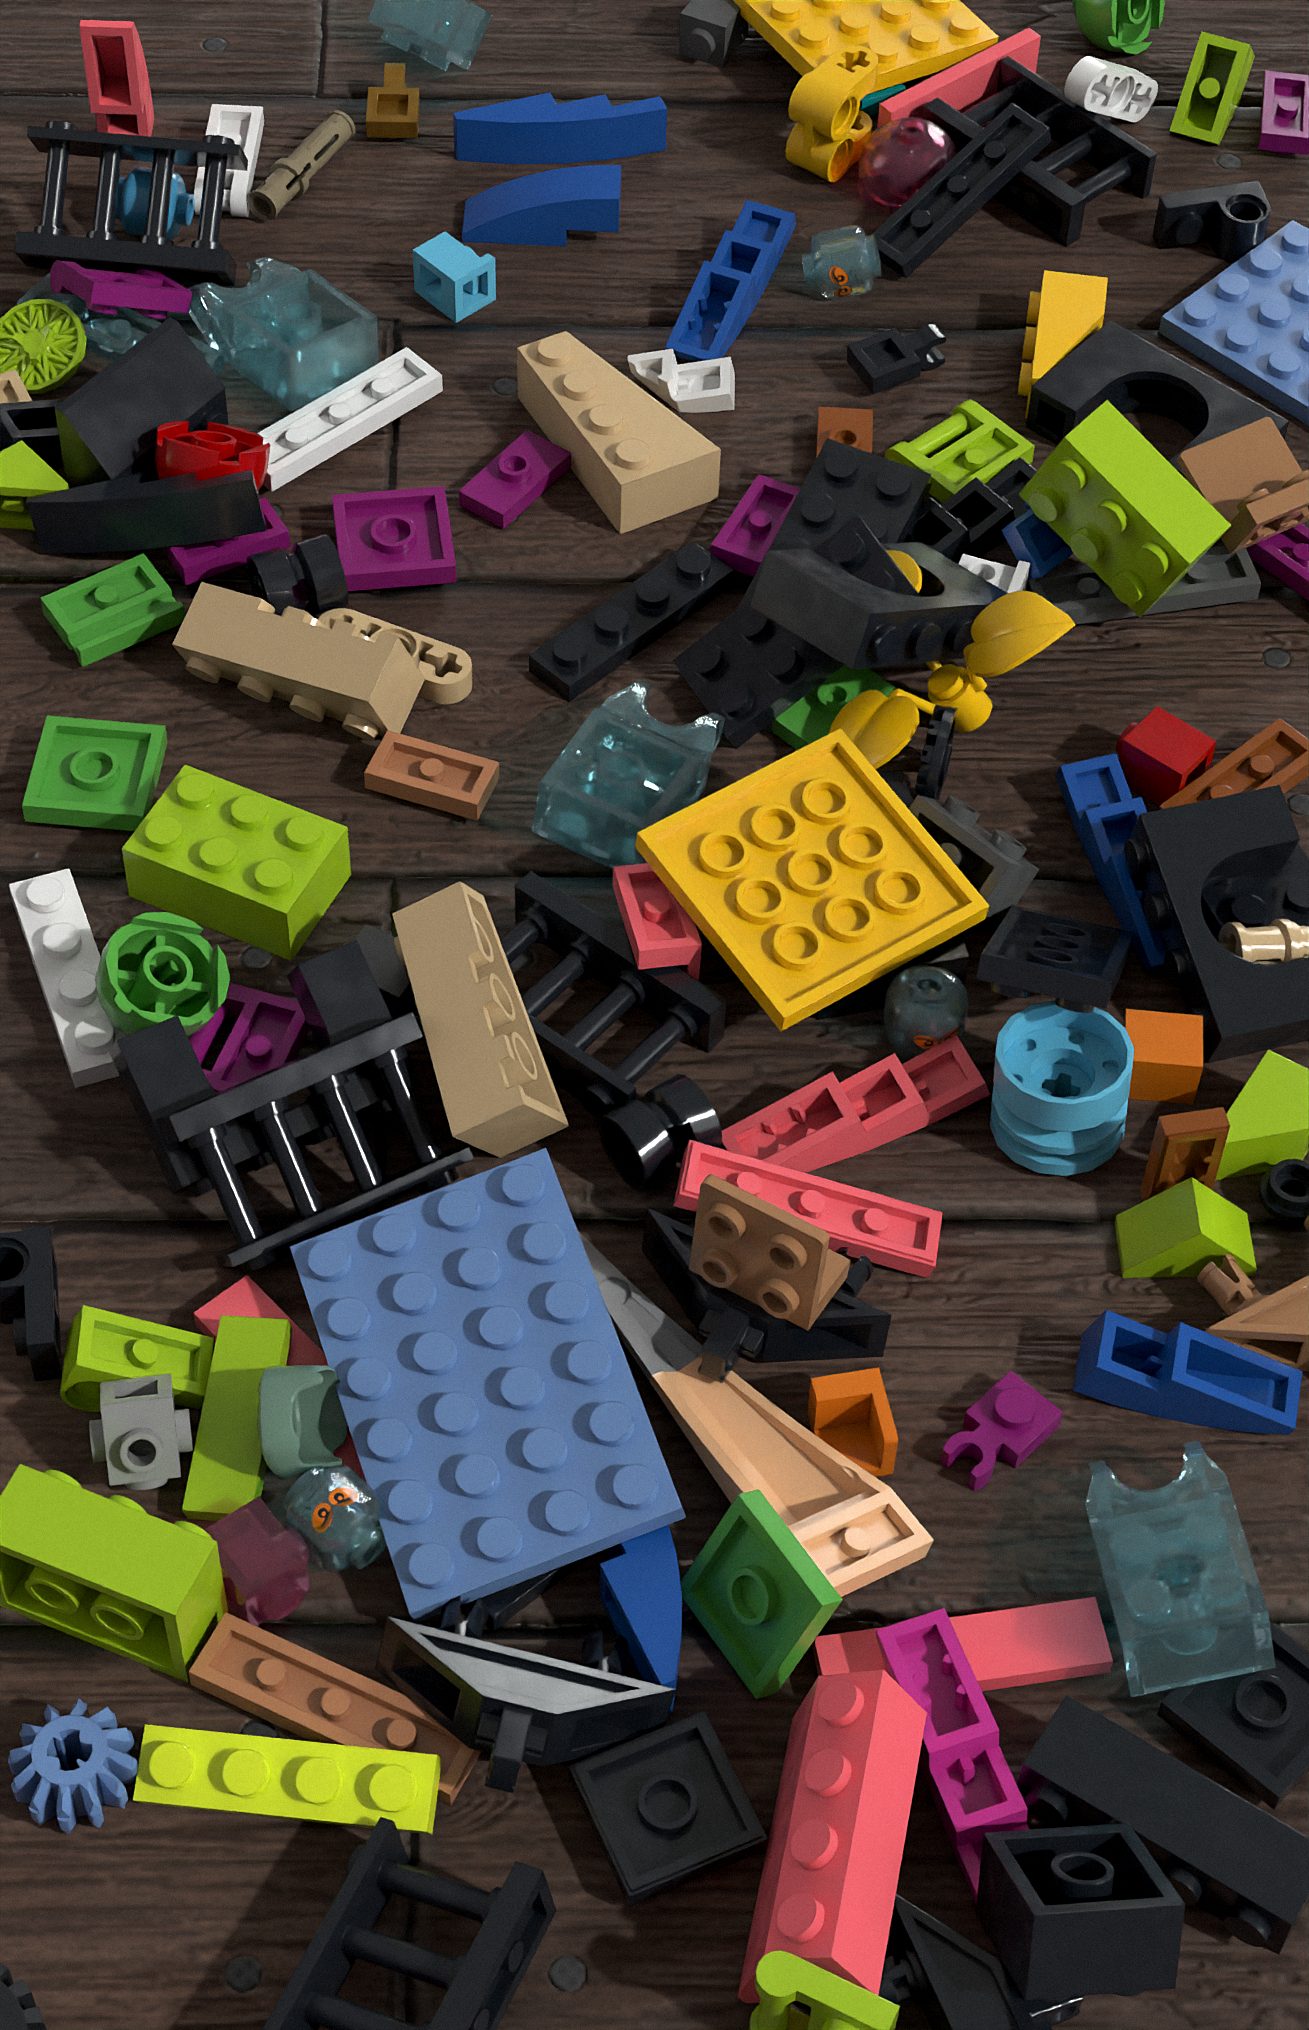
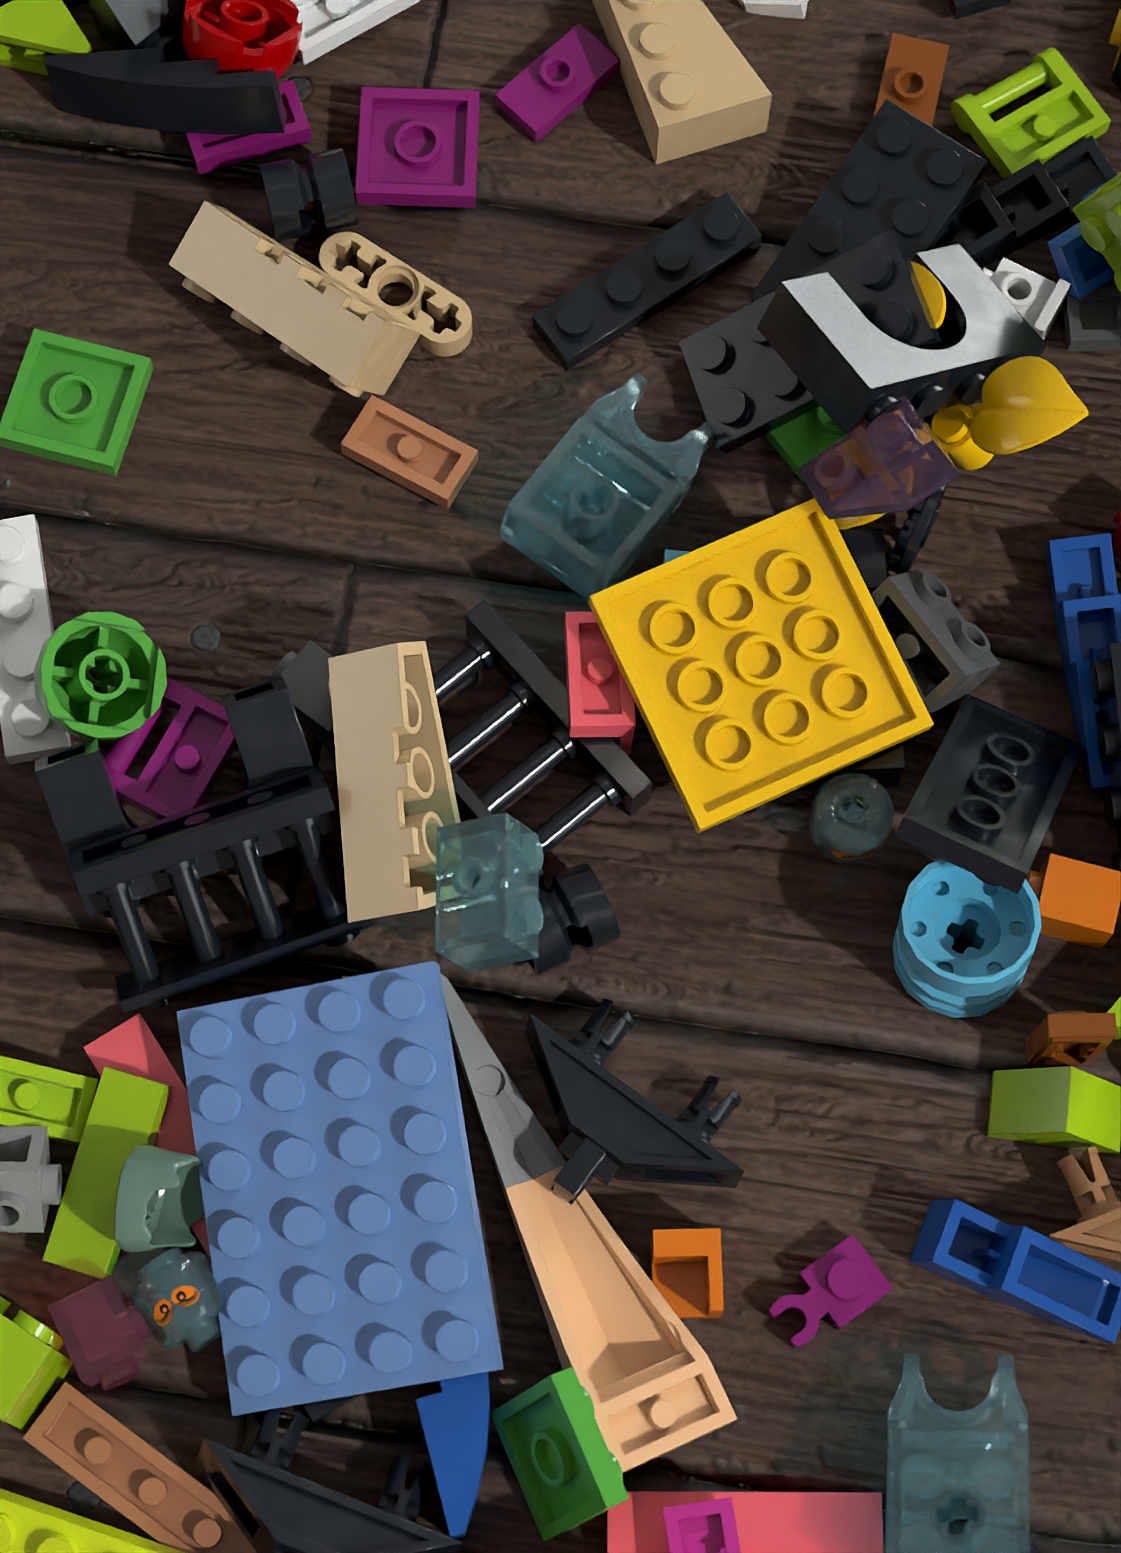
camera: 10 degrees right, 20 degrees up
(113, 609) = (120, 199): bright green plate -> none
(237, 861) = (198, 534): lime brick -> none
(587, 1096) = (487, 892): none -> clear light blue brick
(754, 524) = (796, 181): magenta plate -> none
(764, 1253) = (631, 1103): medium nougat bracket -> none
(864, 1221) = (690, 1028): coral tile -> none
(867, 1110) = (758, 918): coral slope -> none
(893, 692) = (880, 466): none -> slope

